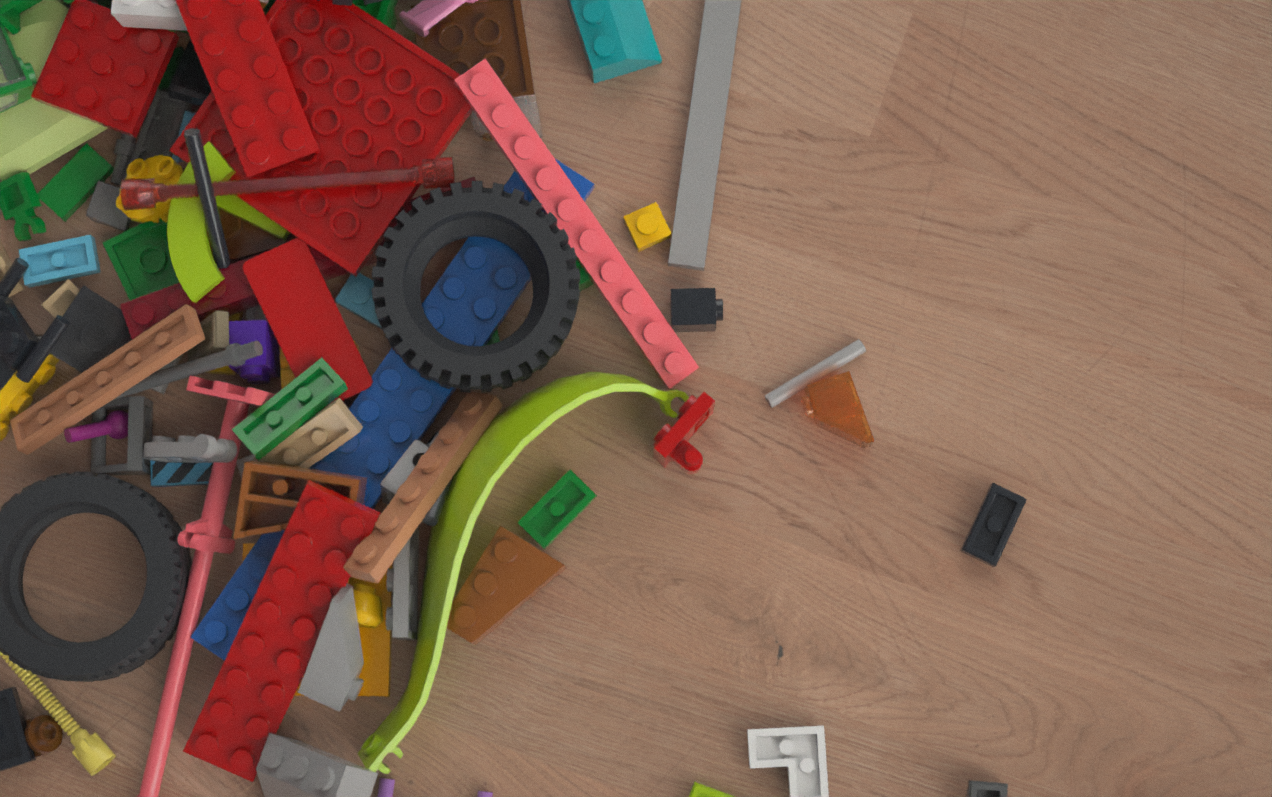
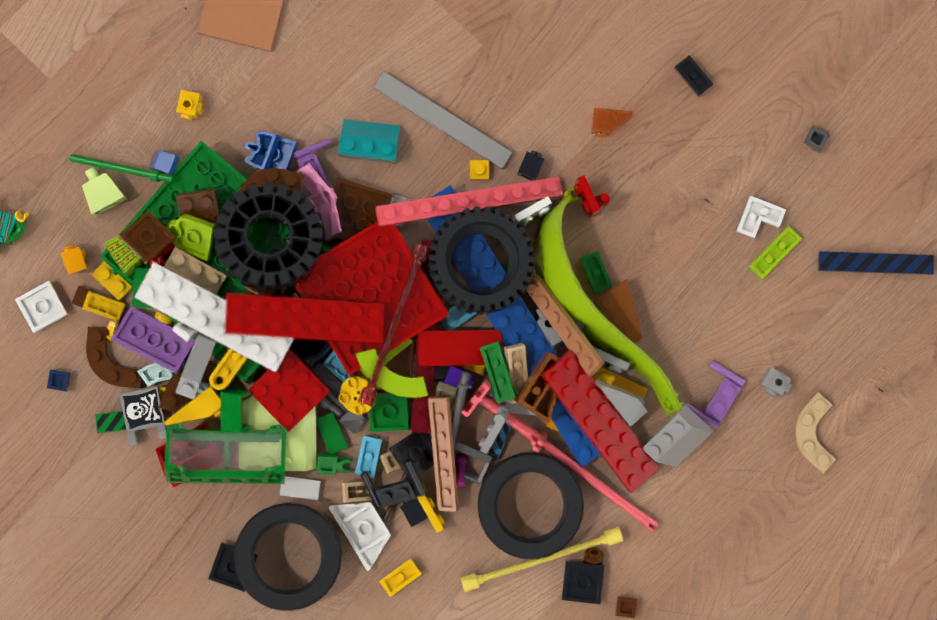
camera: 70 degrees left, 5 degrees up
(207, 197) = (385, 365): black bar -> none
(599, 338) = (539, 208): none -> white plate
(815, 373) = (585, 124): light grey bar -> none

